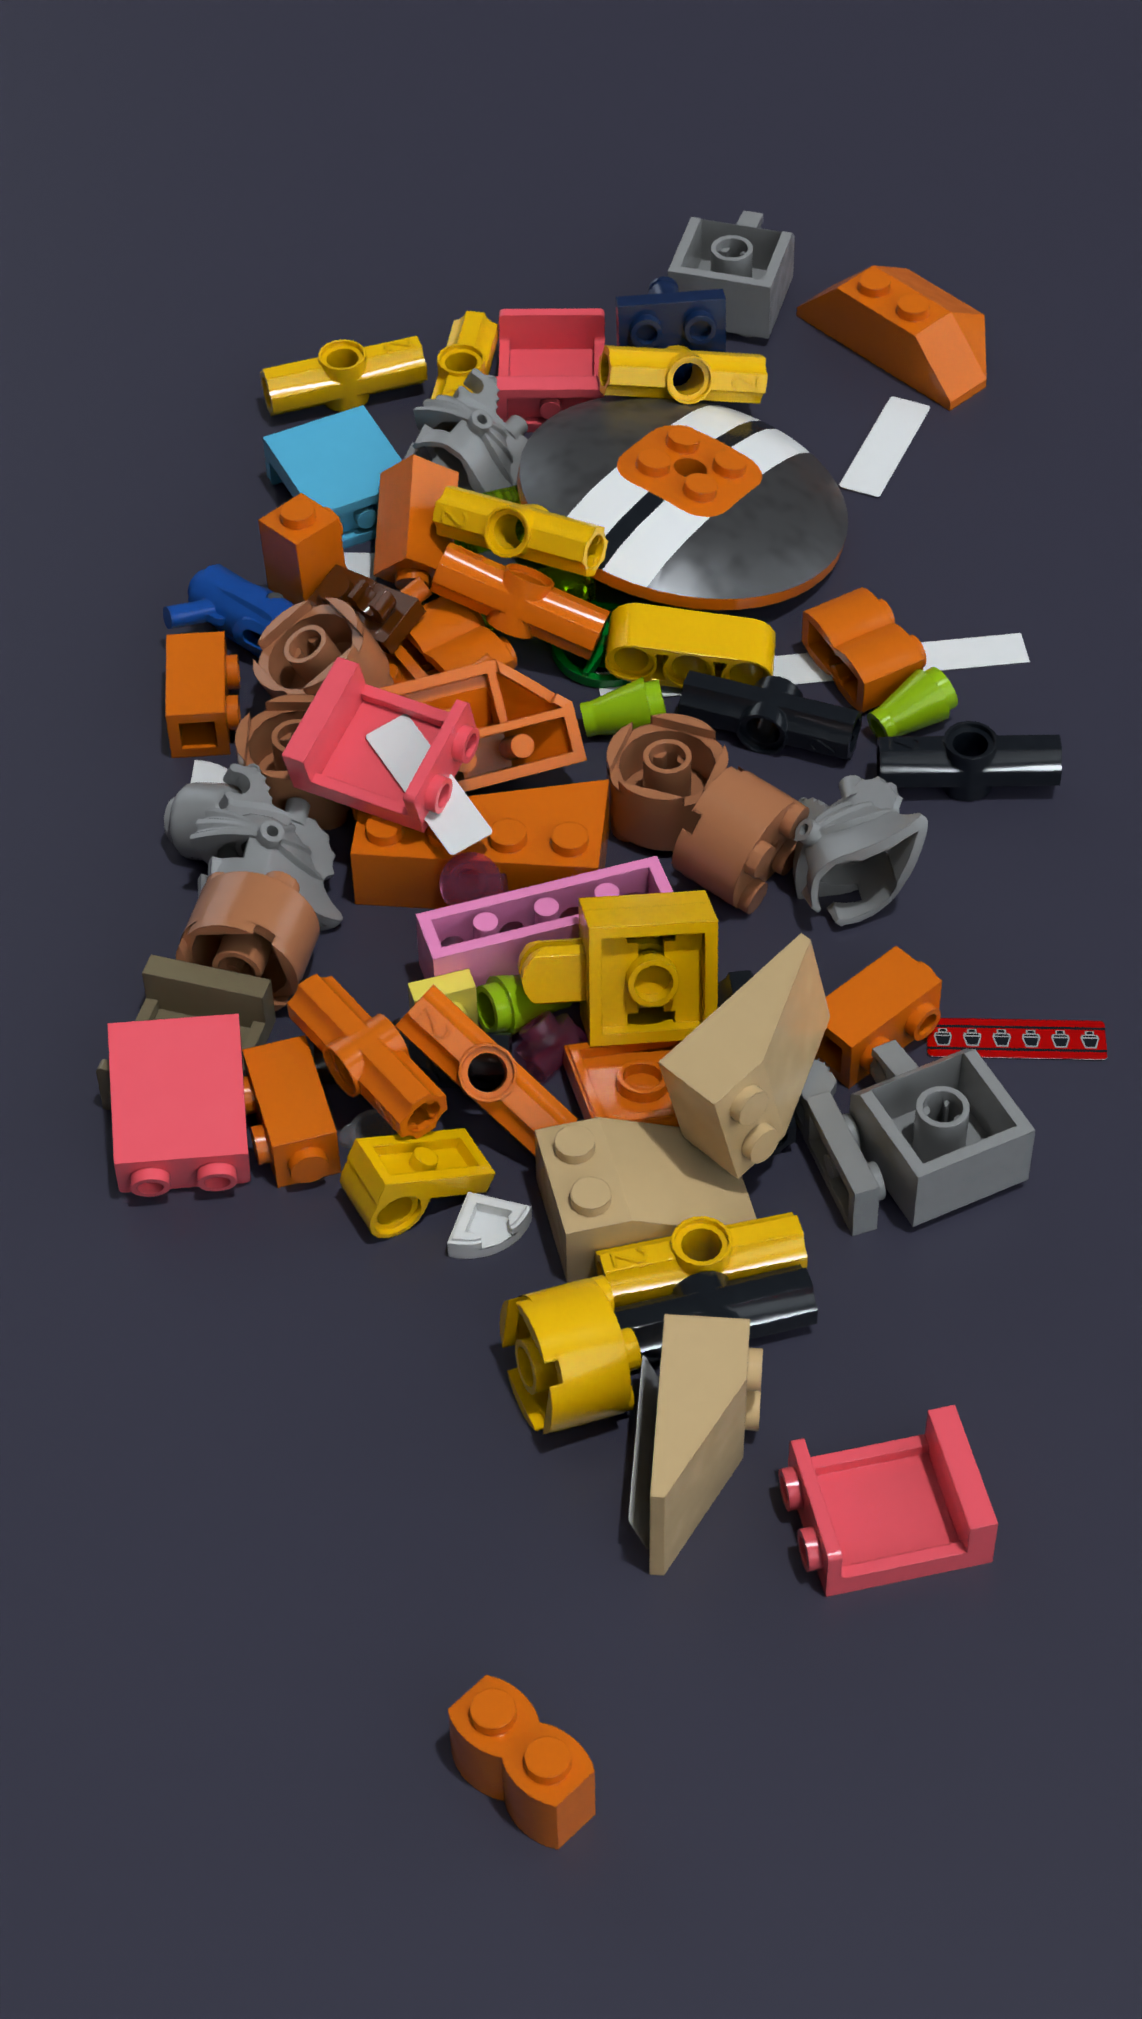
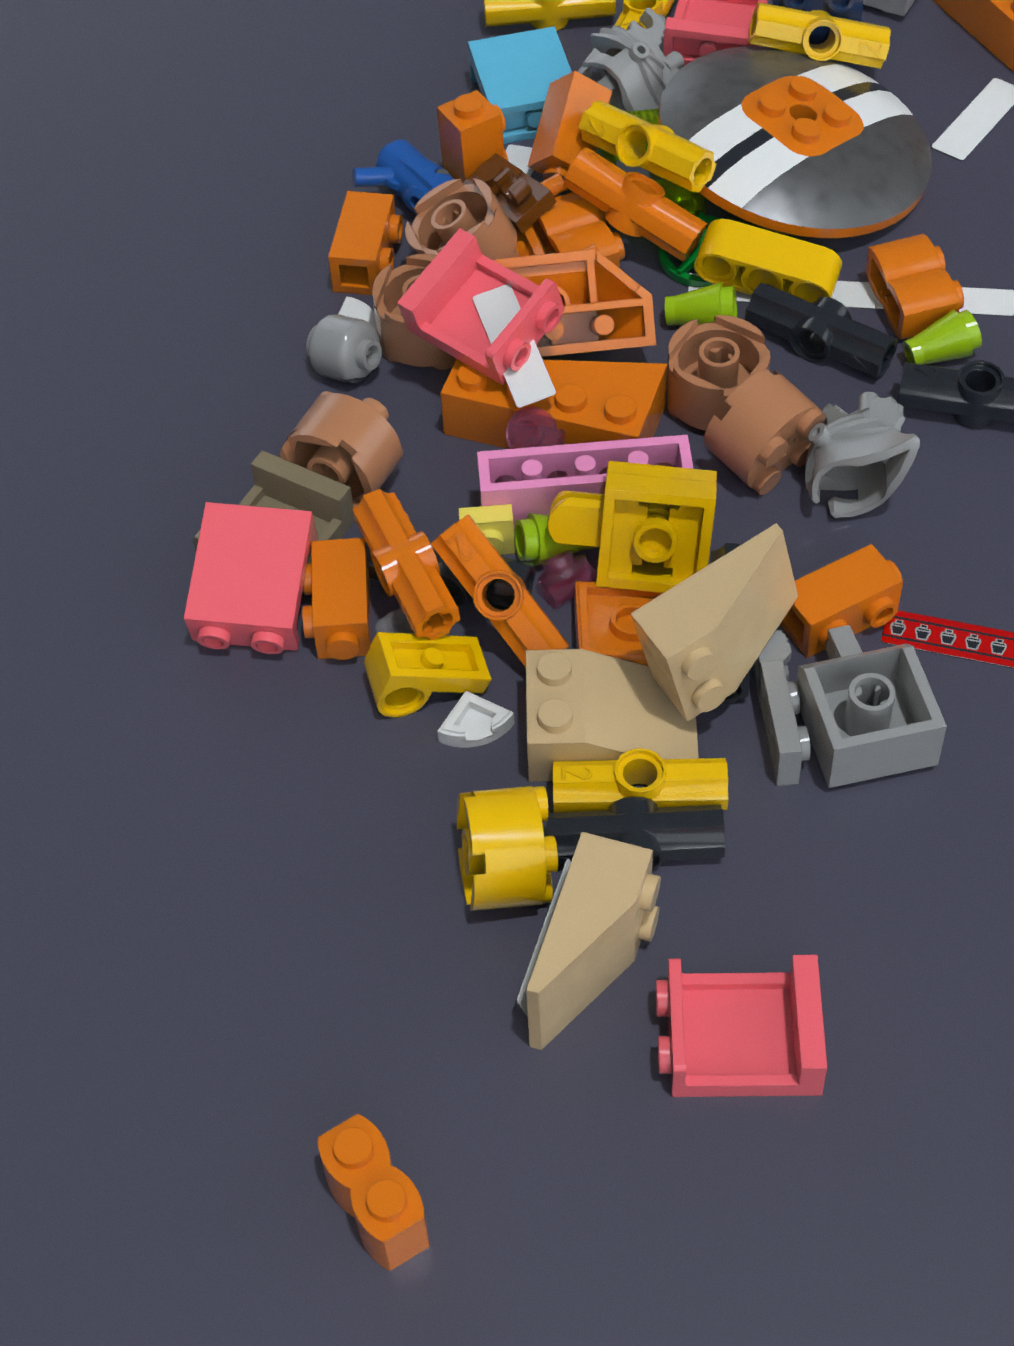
camera: 15 degrees right, 5 degrees up
(262, 838) = (378, 370): light grey helmet -> none

